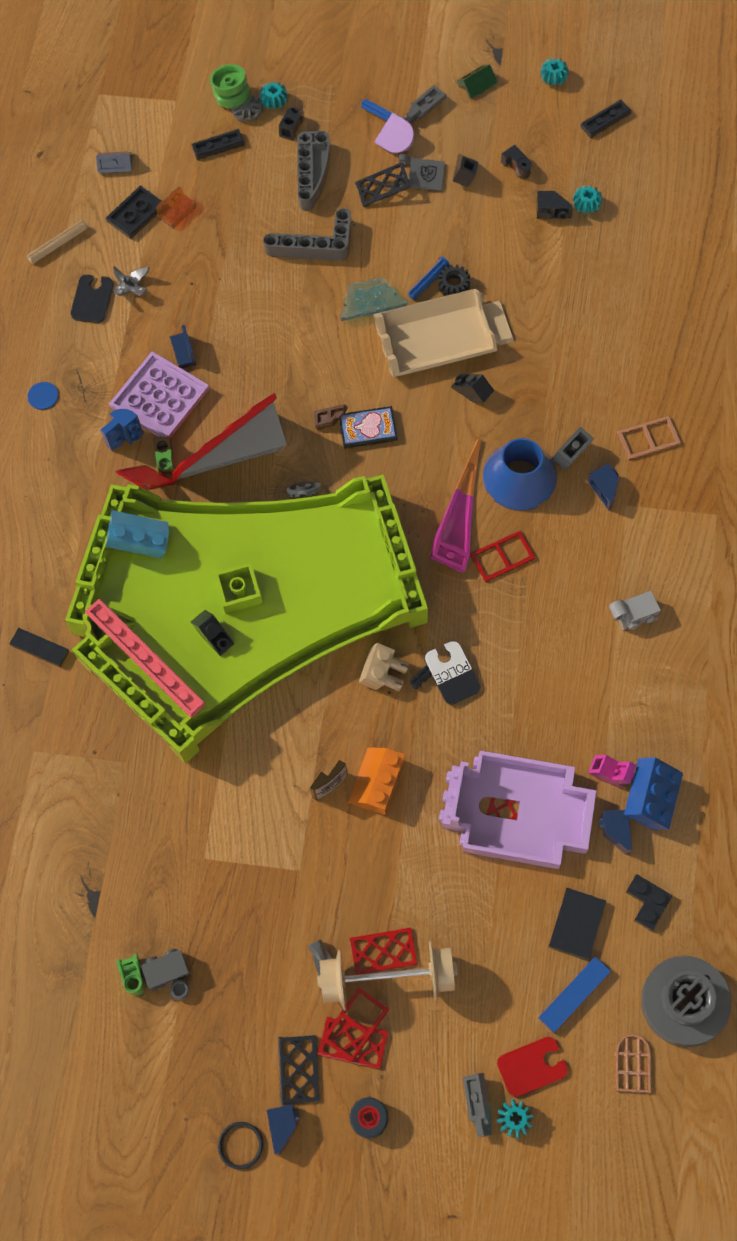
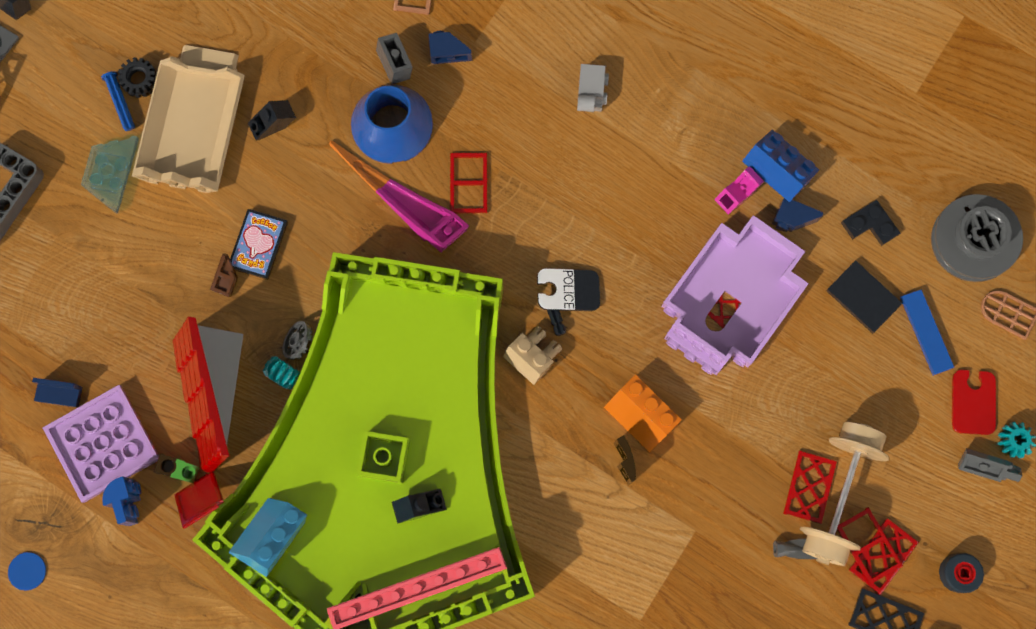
camera: 70 degrees left, 10 degrees up
(273, 488) = (281, 372): none -> teal gear

